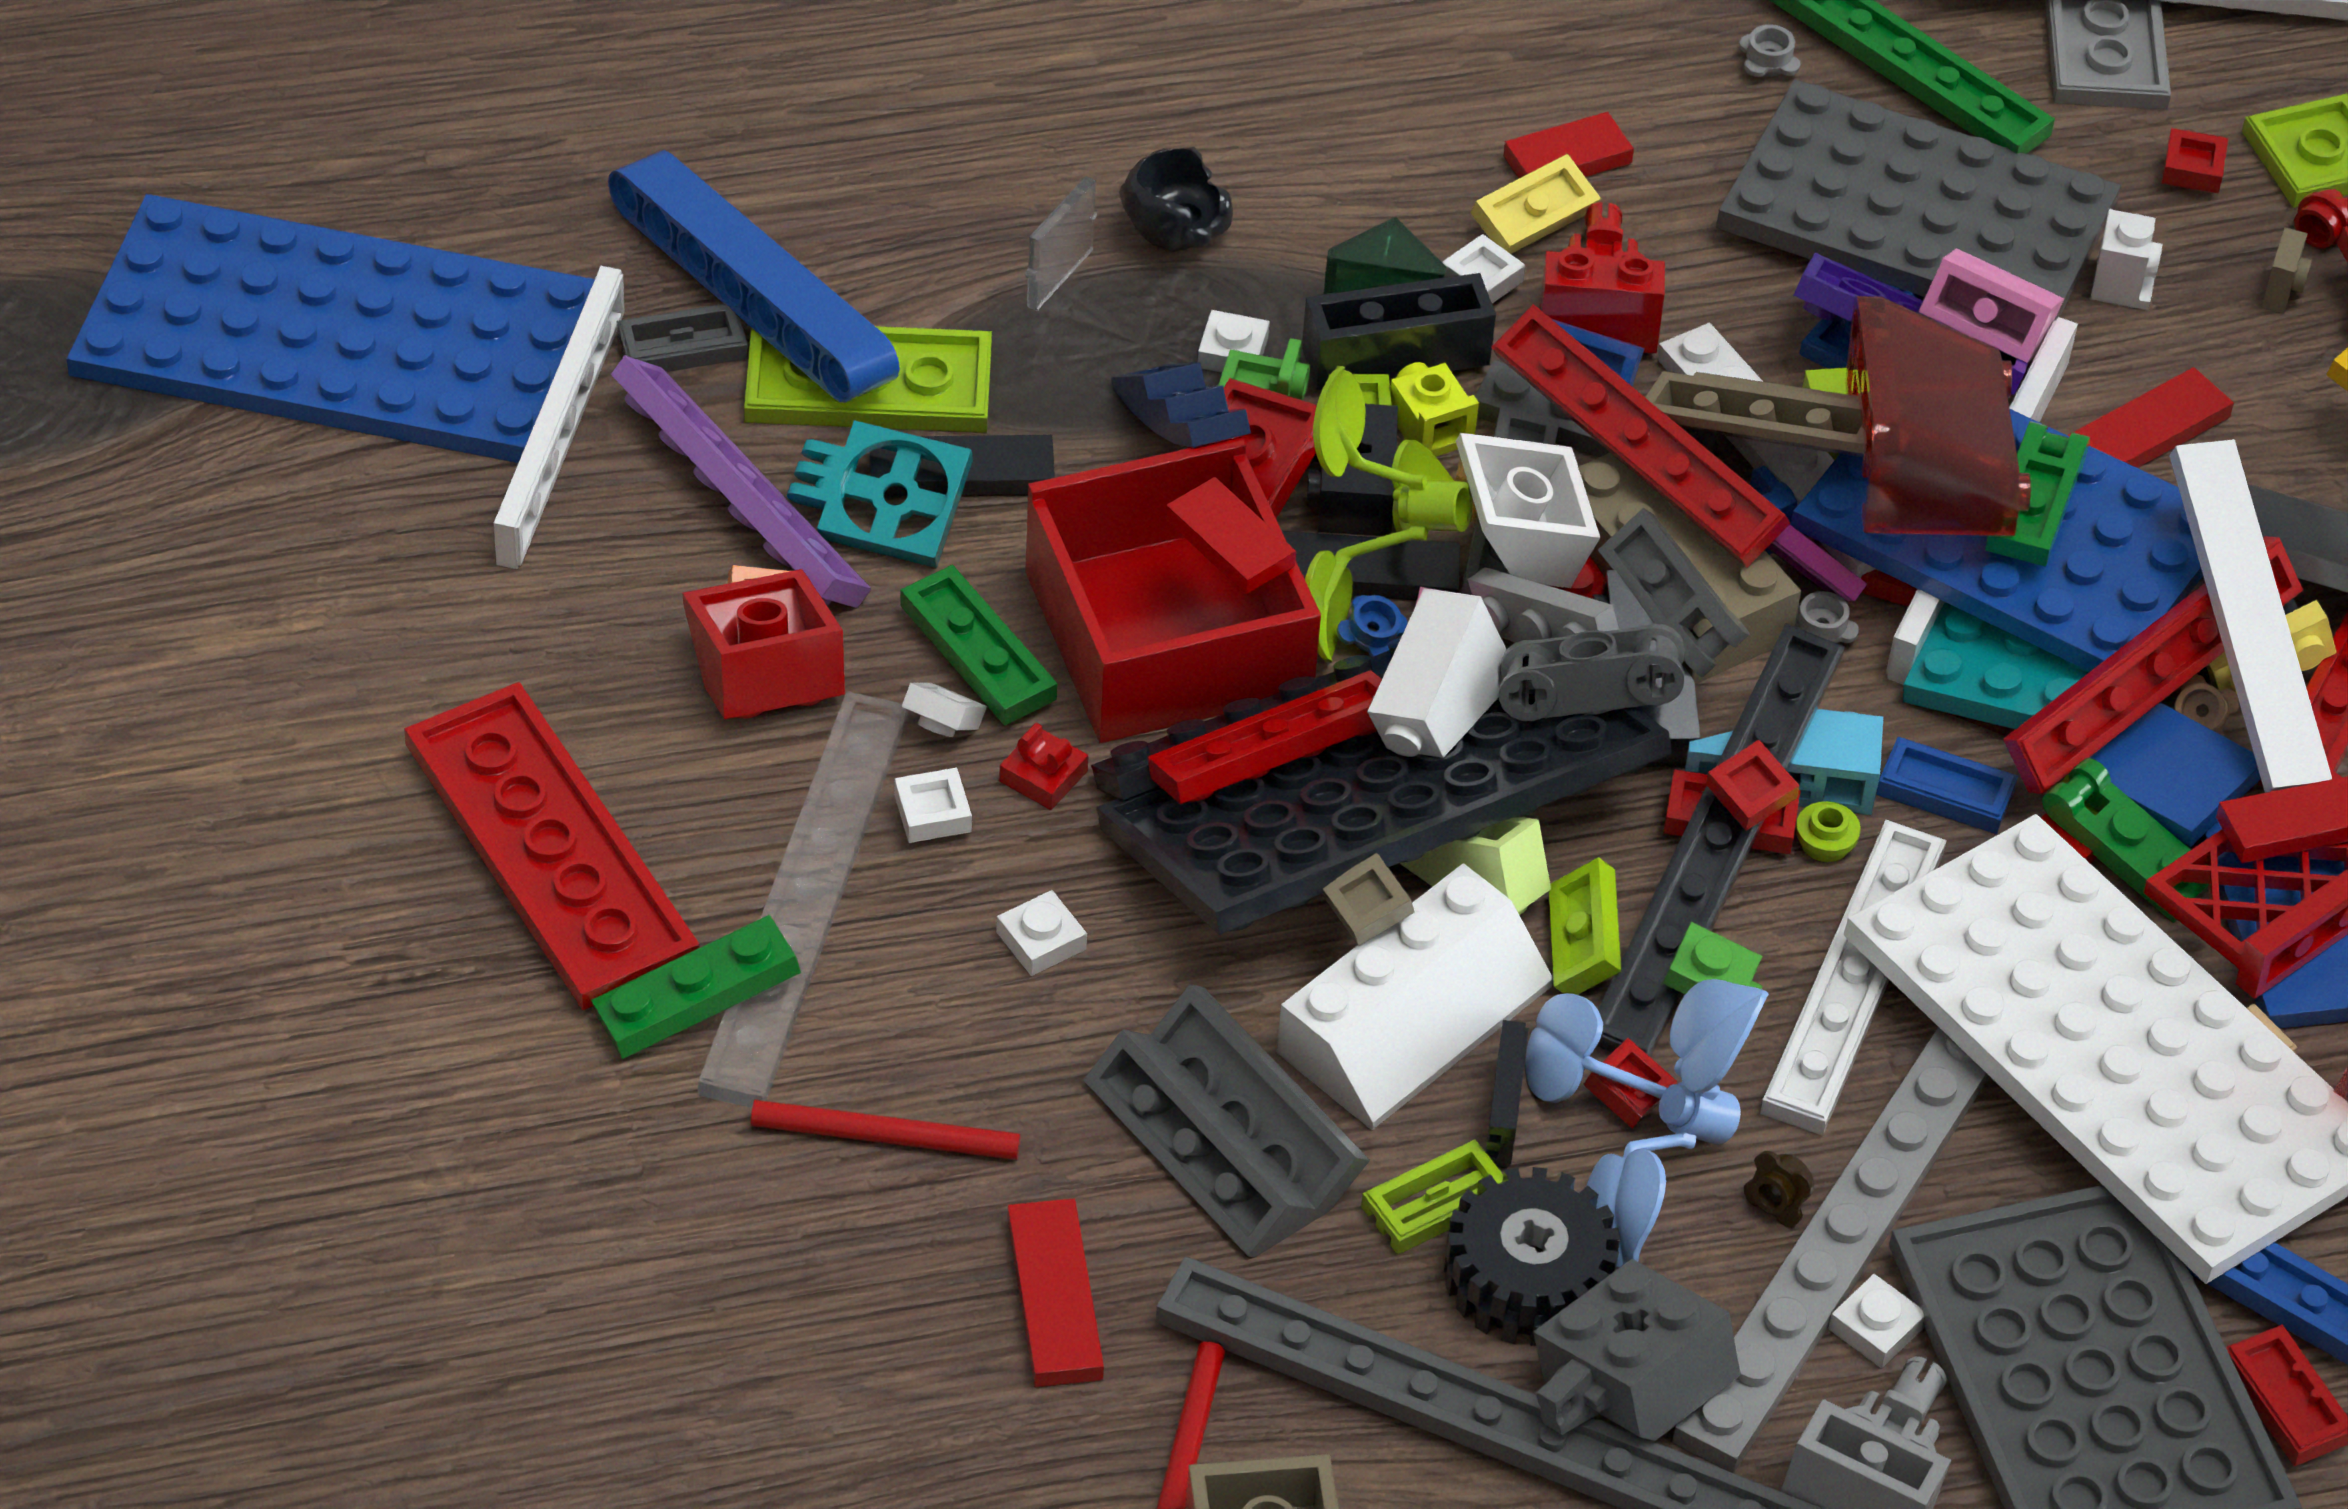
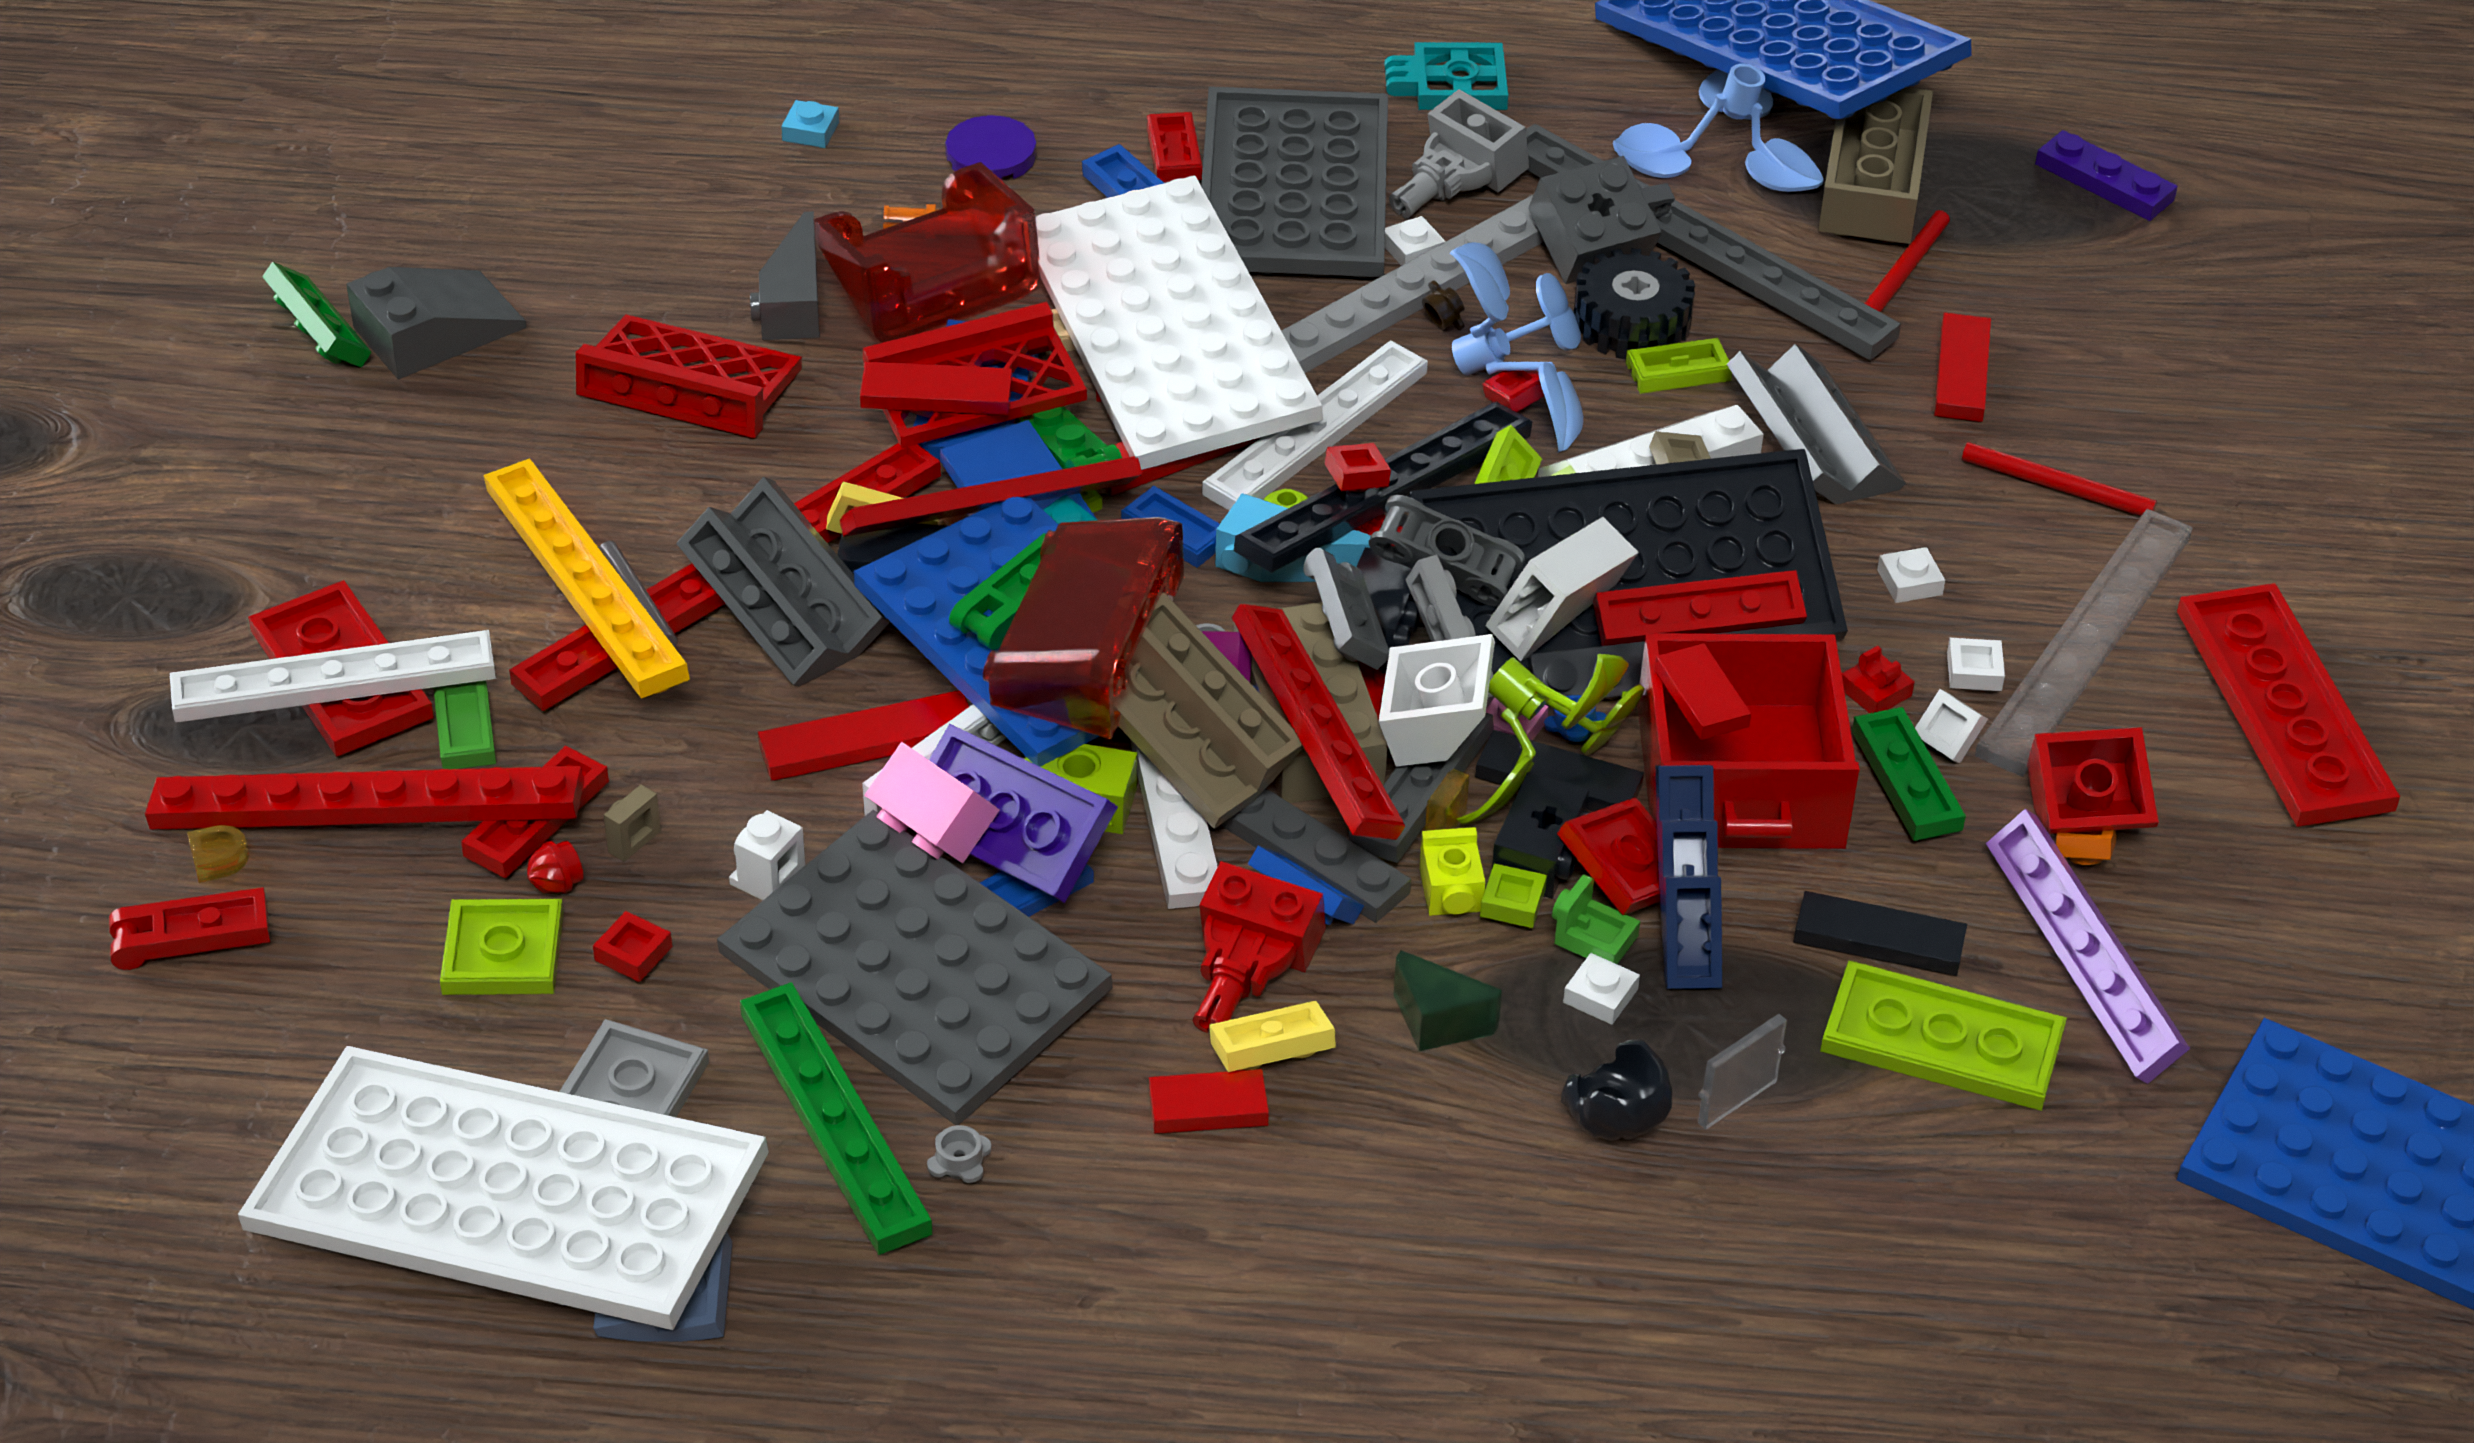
camera: 160 degrees left, 5 degrees down
(559, 418) = (2236, 1036): white tile -> none
(684, 346) = (2111, 1115): dark grey tile -> none
(696, 986) = (2175, 574): green plate -> none
(754, 276) = (2046, 1116): blue beam -> none
(838, 480) = (1967, 925): teal piece -> none
(1400, 325) = (1462, 922): black brick -> none
(1497, 267) = (1349, 989): white plate -> none
(1507, 1093) = (1610, 392): black tile -> none
(1710, 956) = (1430, 410): bright green bracket -> none
(2249, 615) = (912, 473): white tile -> none

